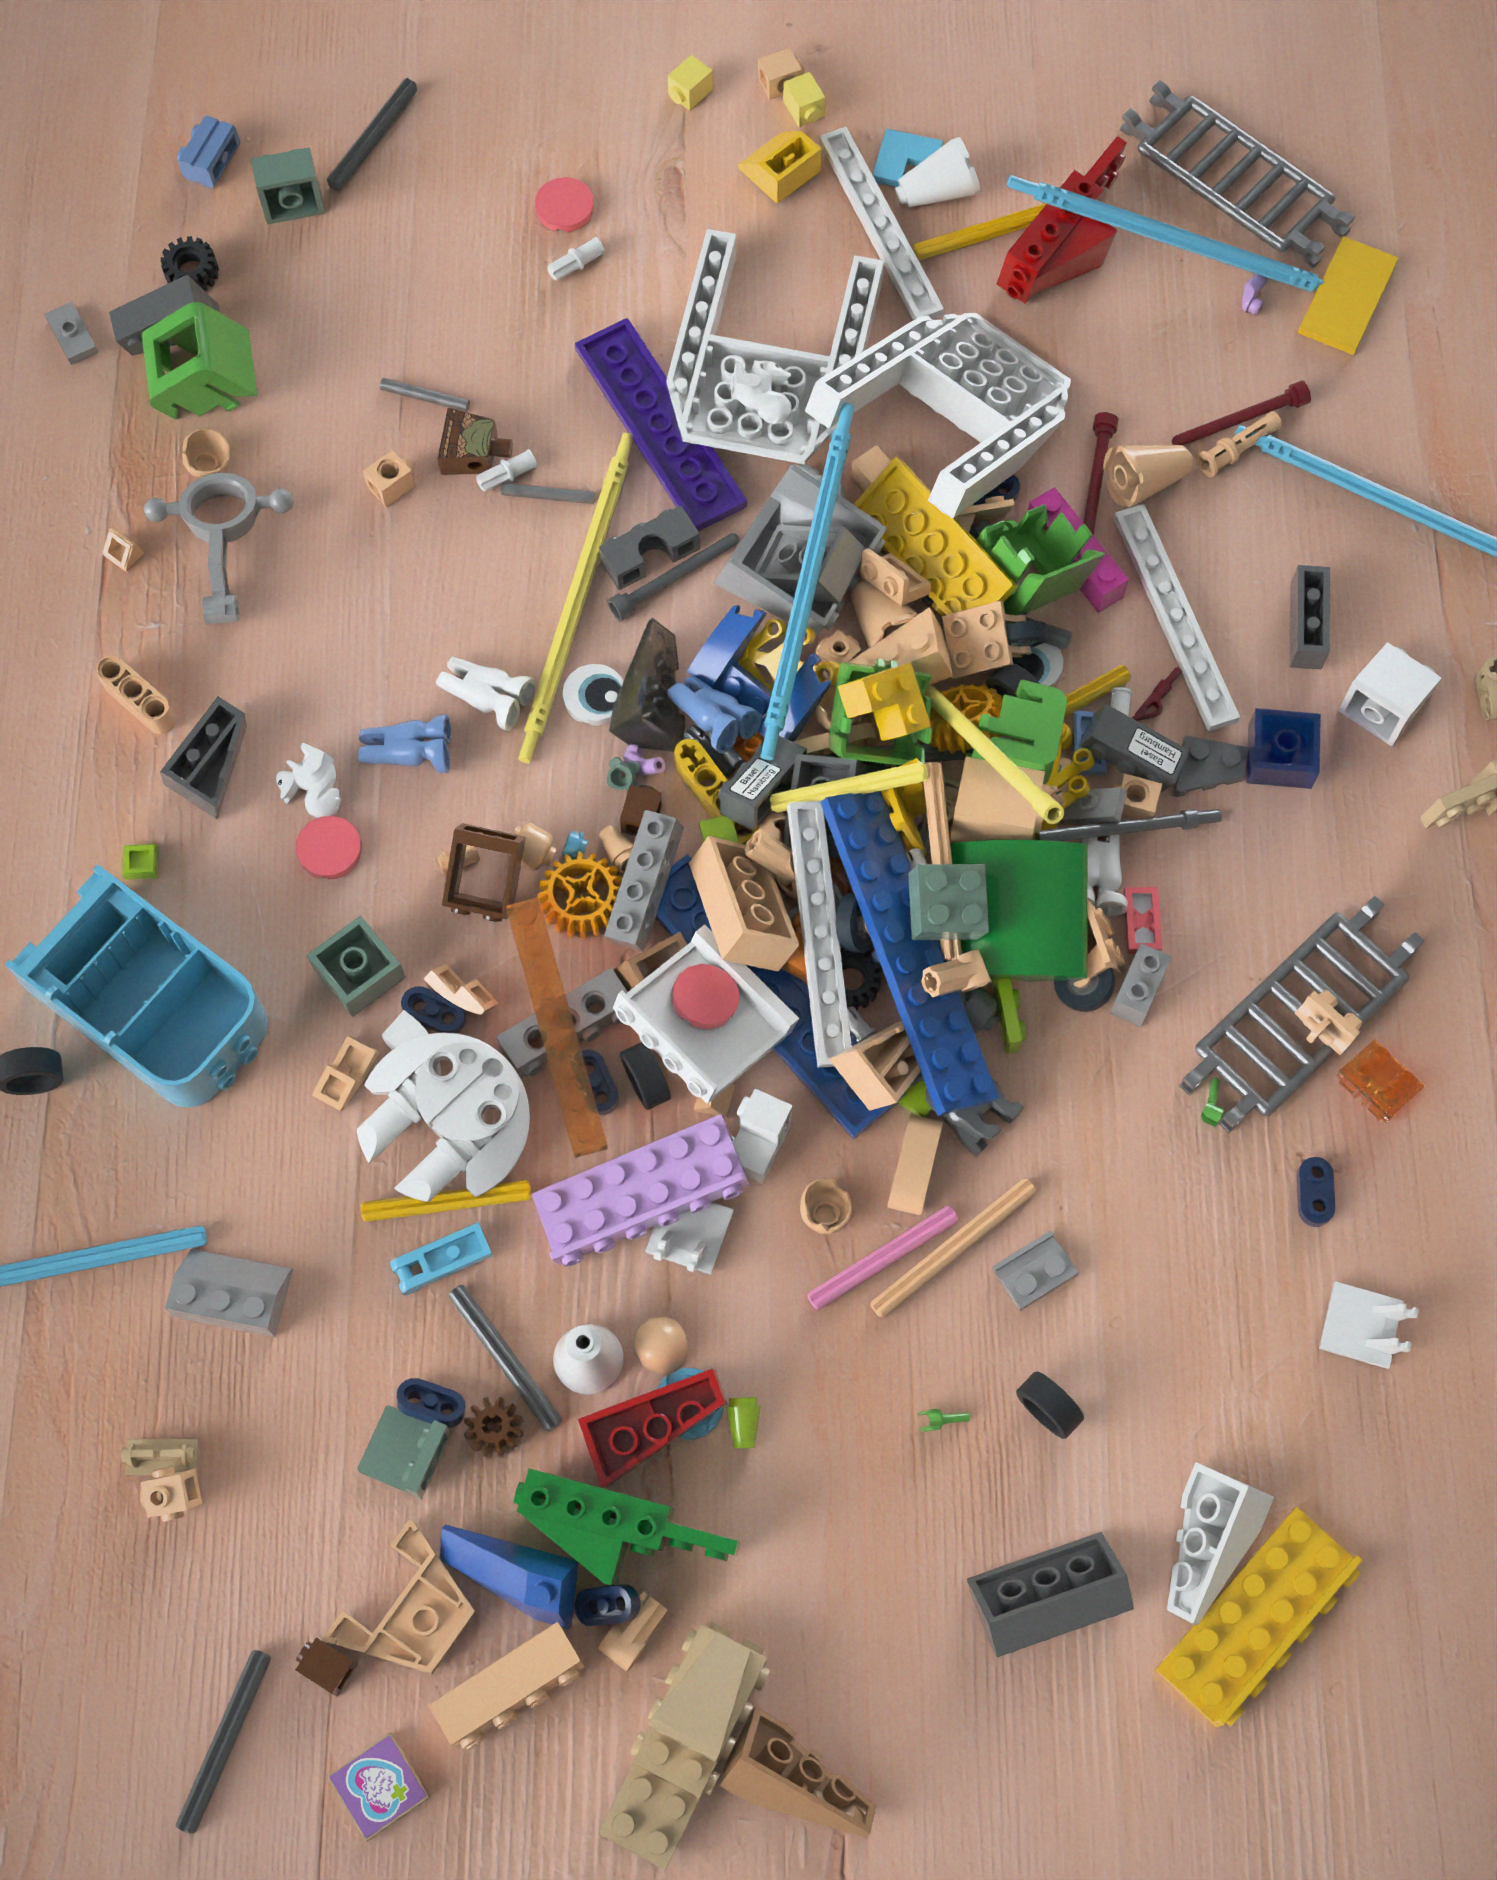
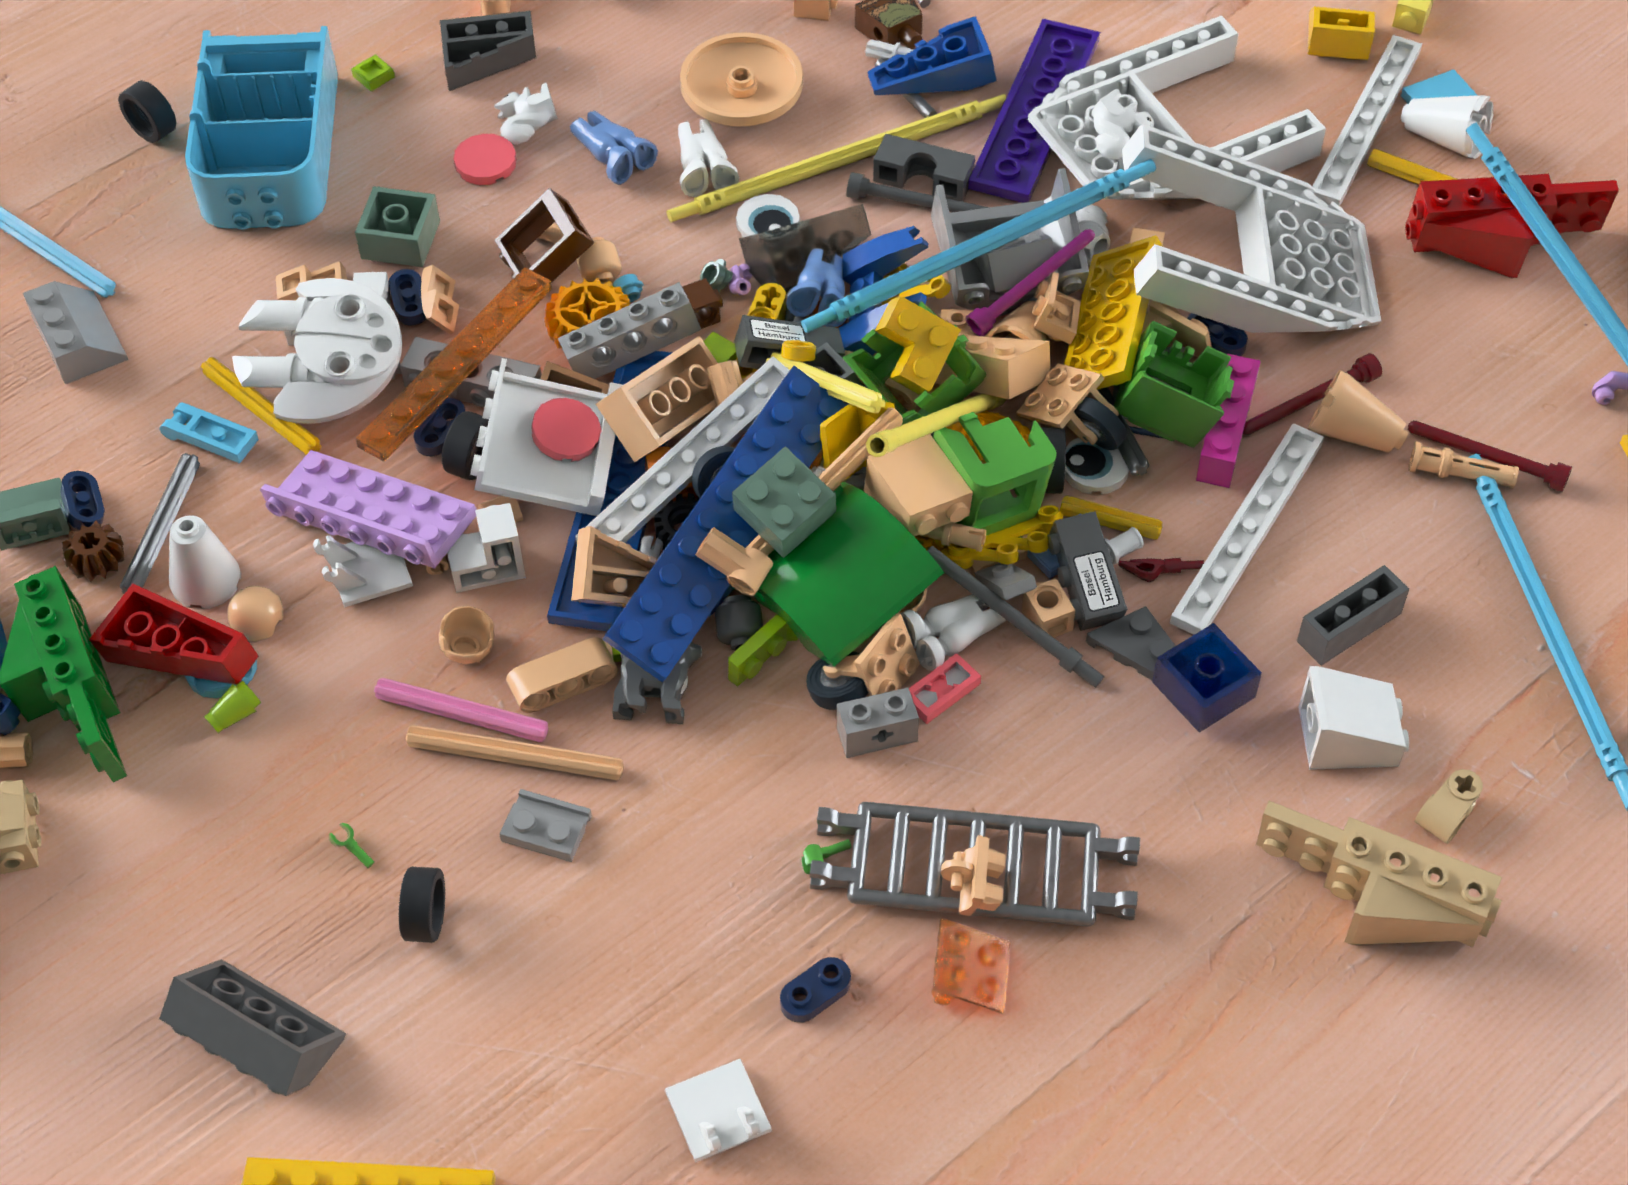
camera: 50 degrees right, 15 degrees down
(435, 599) = (741, 79): none -> light nougat dish
(556, 448) = (949, 62): none -> blue wedge
(792, 780) = (798, 350): none -> yellow tile
(862, 633) = (982, 319): none -> magenta piece
(1216, 1533) = (431, 1119): white wedge -> none

